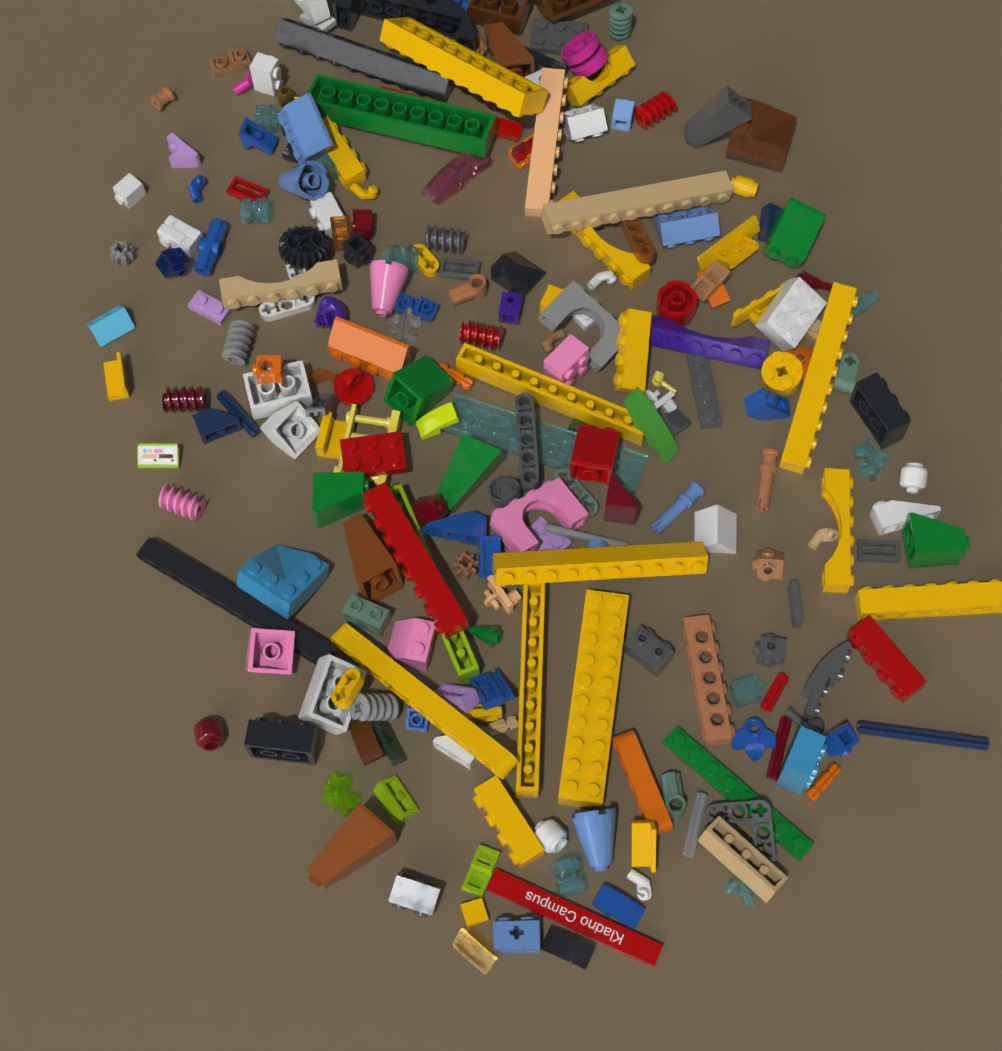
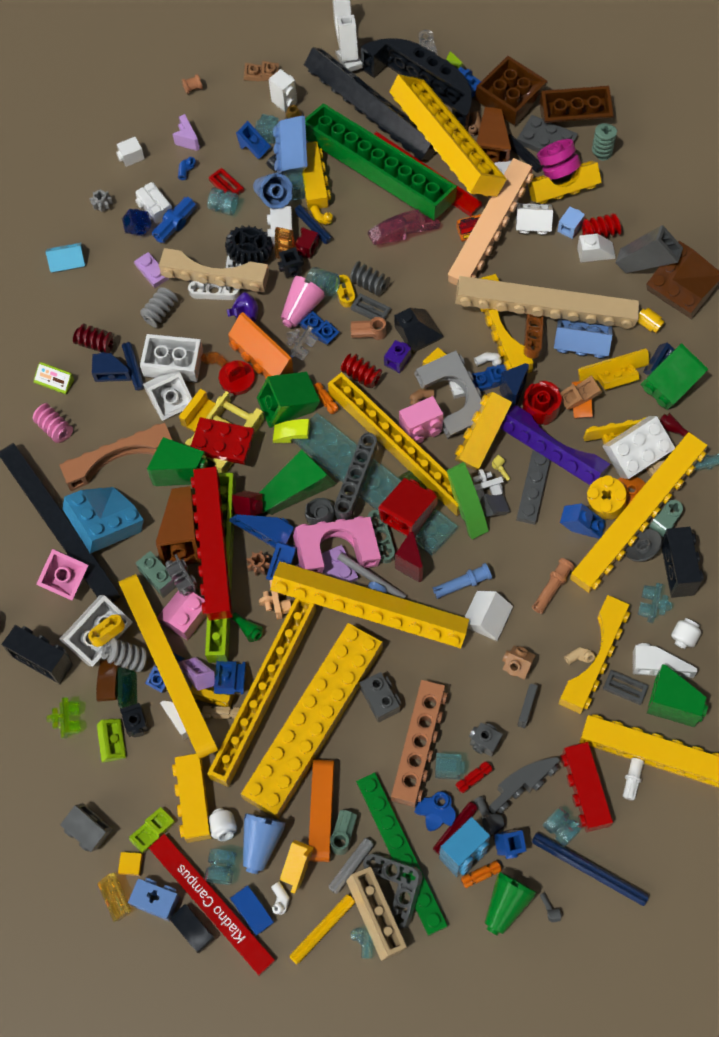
camera: 25 degrees right, 0 degrees up
(116, 378) = (50, 302): yellow panel -> none
(234, 540) = (81, 470): none -> nougat arch
(244, 84) = (262, 94): dark pink arm -> none
(274, 375) = (172, 342): orange brick -> none
(319, 406) = (200, 383): dark grey tile -> none
(353, 846) = (52, 766): dark orange slope -> none
(359, 202) = (313, 224): none -> dark blue axle
(403, 610) = (182, 579): none -> flat silver hinge
(415, 778) = (134, 712): none -> black brick
(614, 296) = (489, 378): none -> blue slope
(640, 293) = (513, 383): none -> dark blue slope
(657, 133) = (595, 248): none -> white slope
(695, 897) = (322, 929): none -> yellow axle
(839, 408) = (645, 546): none -> dark grey dish
(862, 797) = (507, 903): none -> green cone
(880, 705) = (562, 826): none -> clear light blue wheel
(907, 793) = (553, 915): none -> dark grey hand
(924, 634) = (633, 778): none -> white axle

